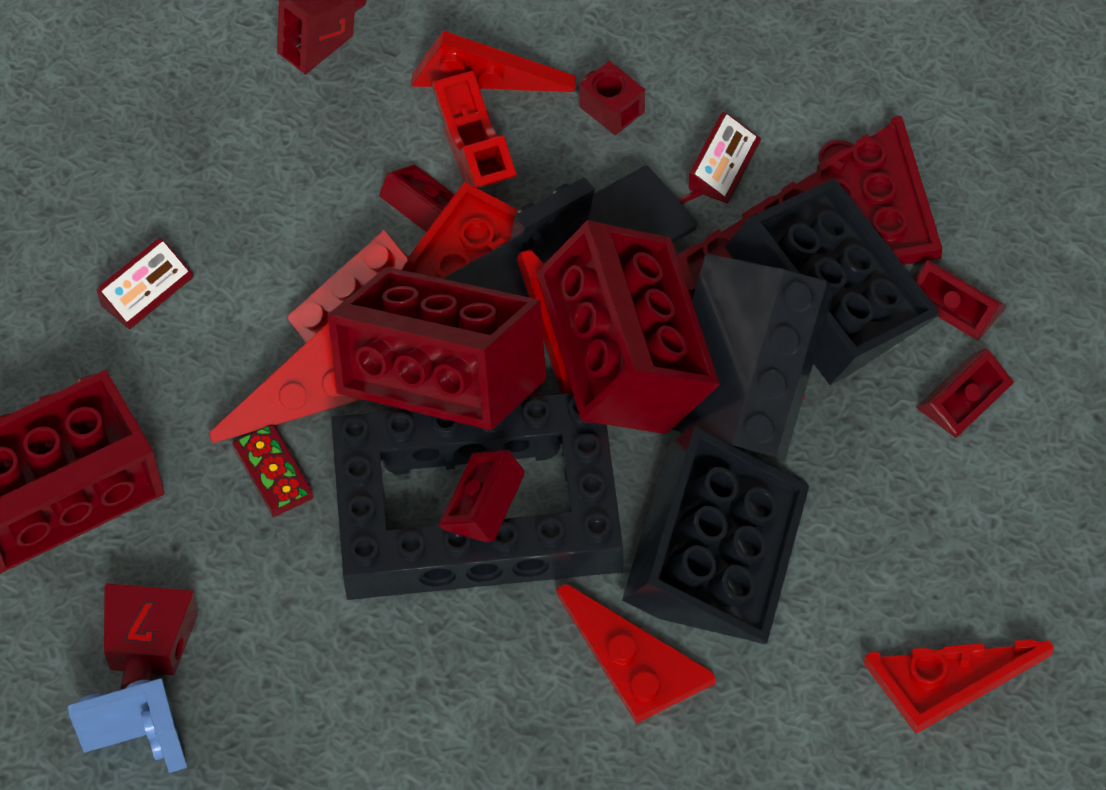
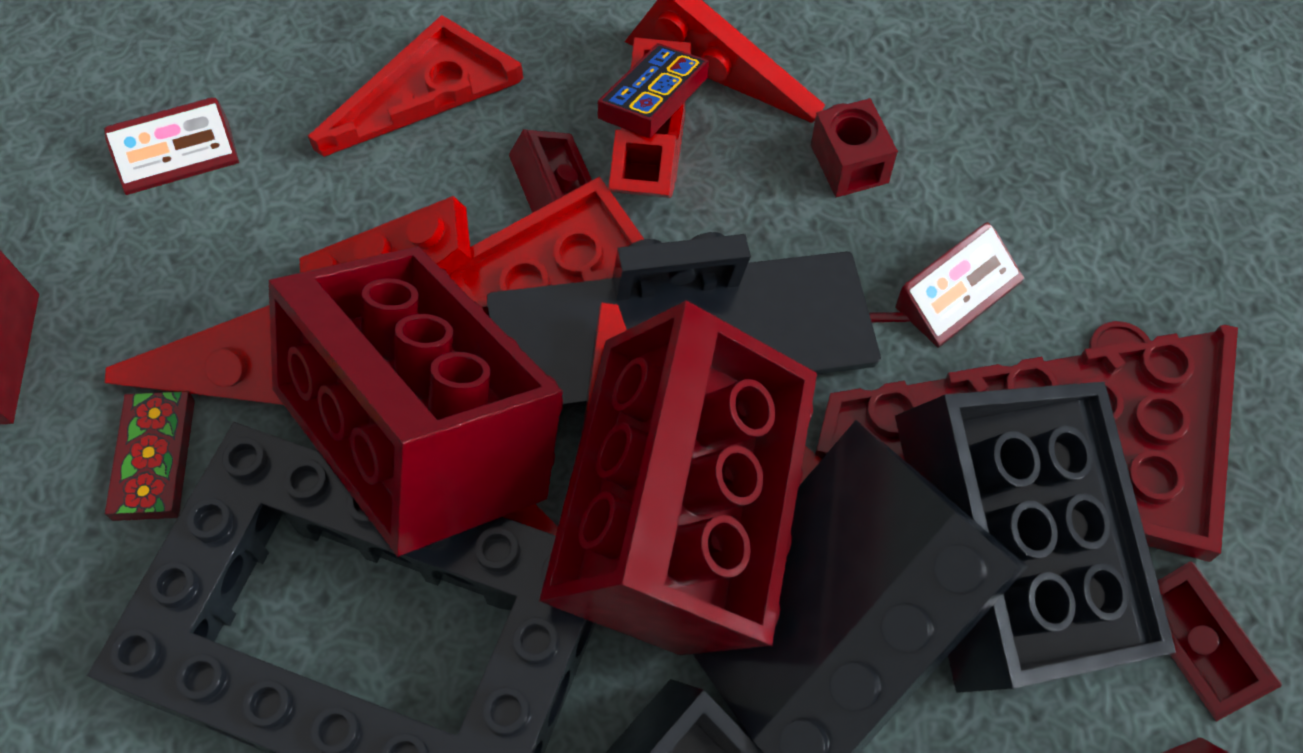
camera: 25 degrees right, 5 degrees up
(292, 167) = (426, 78): none -> red wing
(471, 111) = (653, 90): none -> tile
(483, 495) = (336, 653): dark red slope -> none

